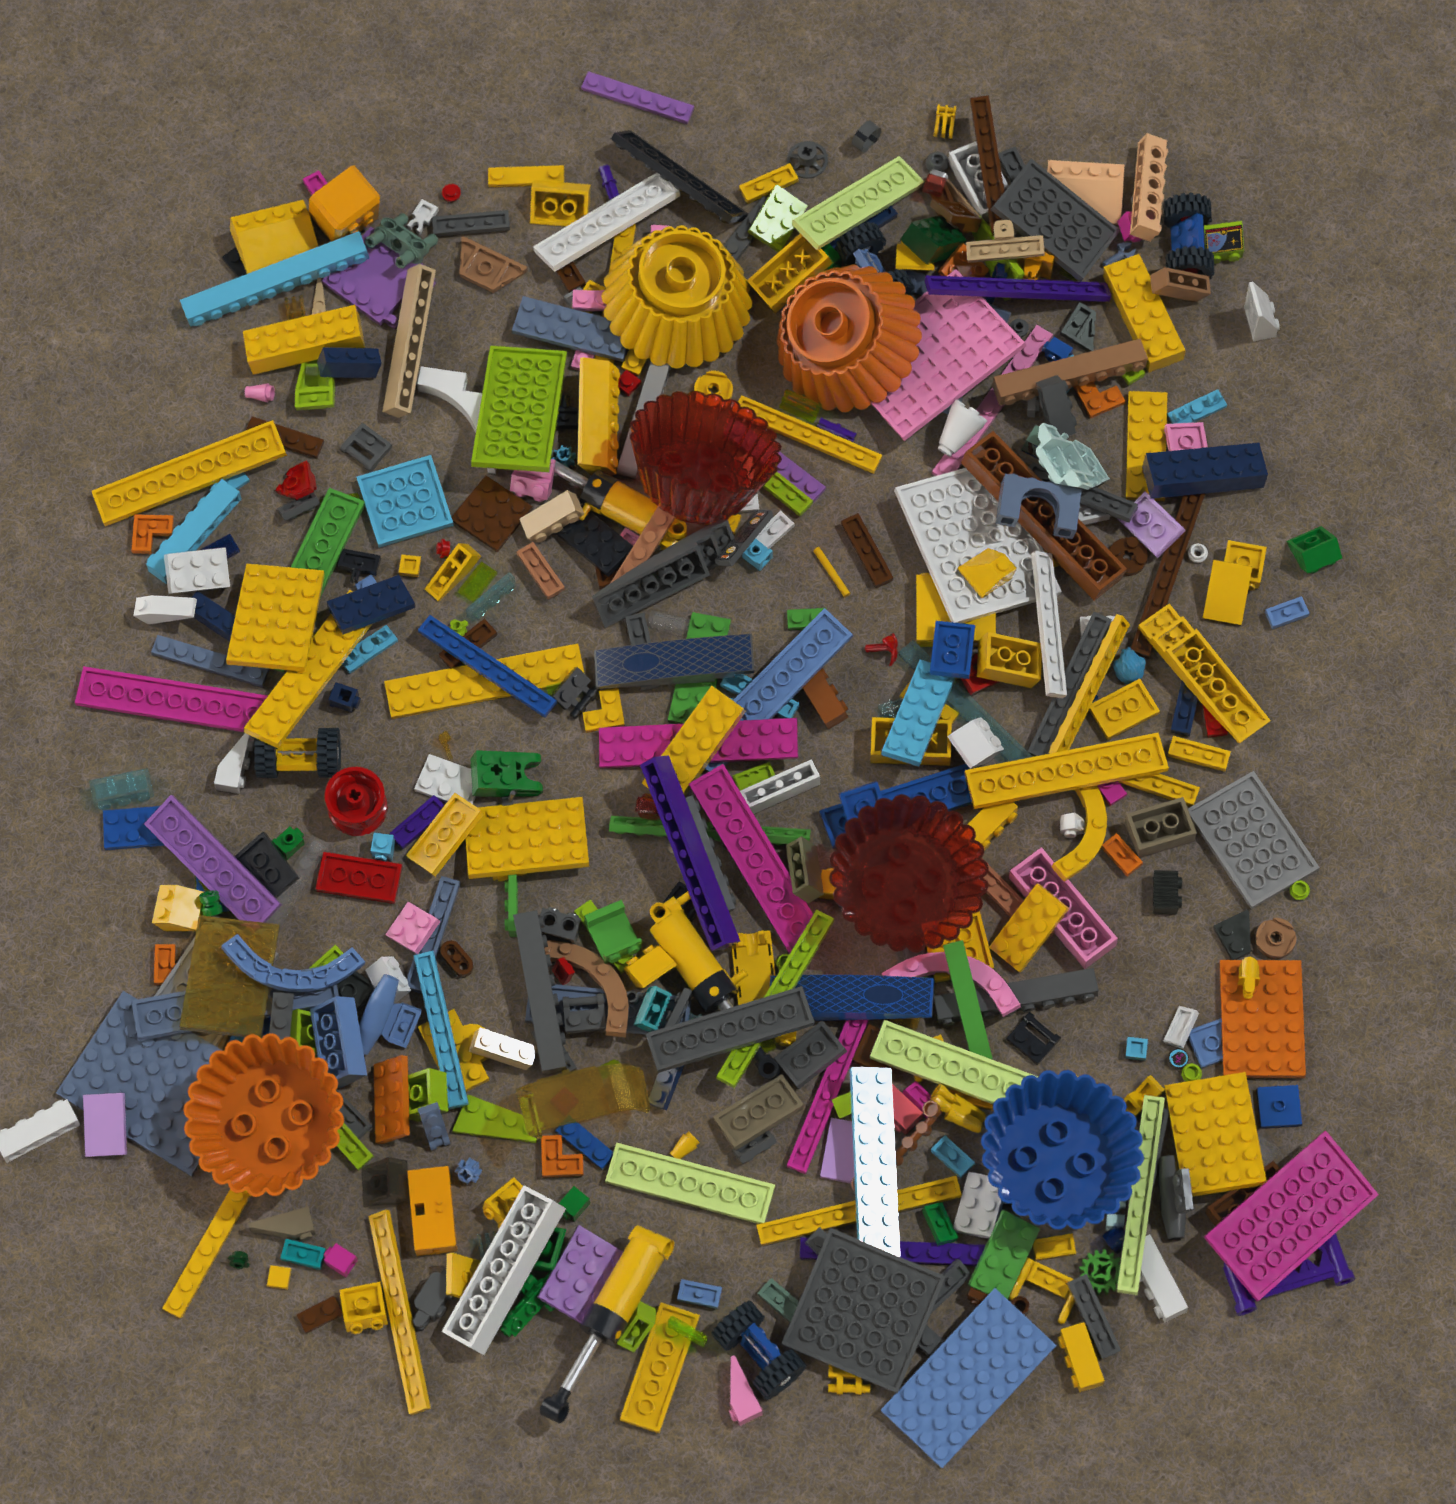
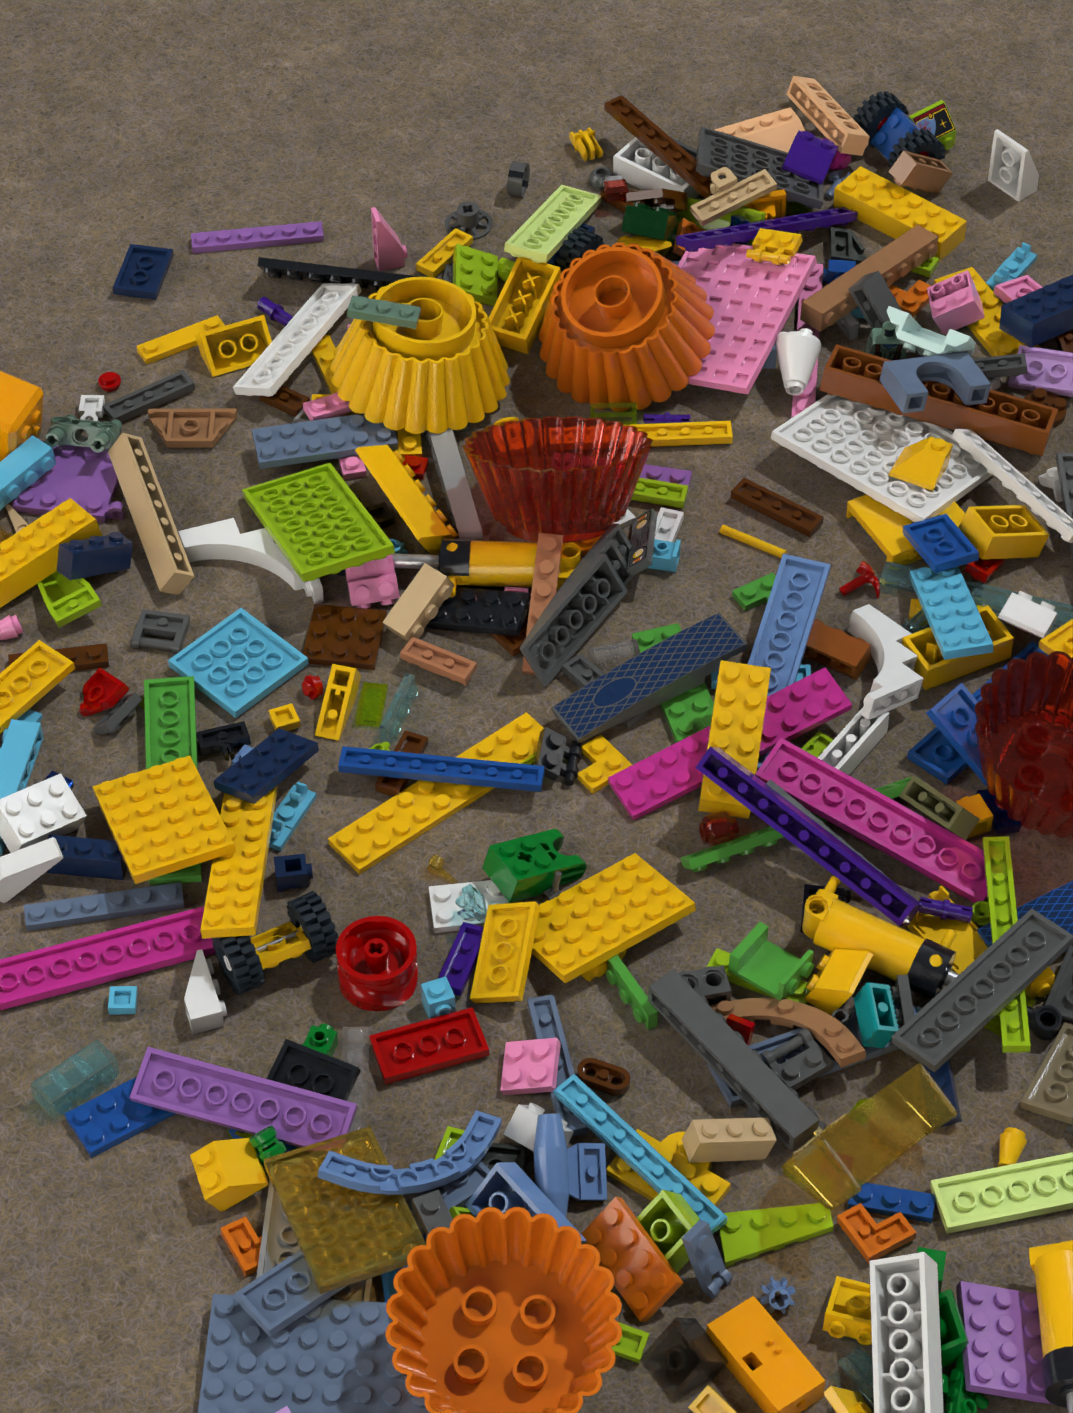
camera: 30 degrees left, 20 degrees down
(183, 742) = (122, 1000): none -> medium azure plate
(445, 786) = (472, 903): none -> clear light blue tile
(532, 94) = (143, 271): none -> dark blue plate
(647, 260) = (383, 312): none -> sand green plate
(723, 159) = (386, 244): none -> bright pink slope
(757, 950) = (946, 910): none -> dark purple pin
(841, 753) = (895, 663): none -> white arch
(1005, 313) = (774, 246): none -> yellow plate
(1102, 228) = (810, 157): none -> dark purple slope
(1121, 426) = (955, 302): none -> bright pink slope

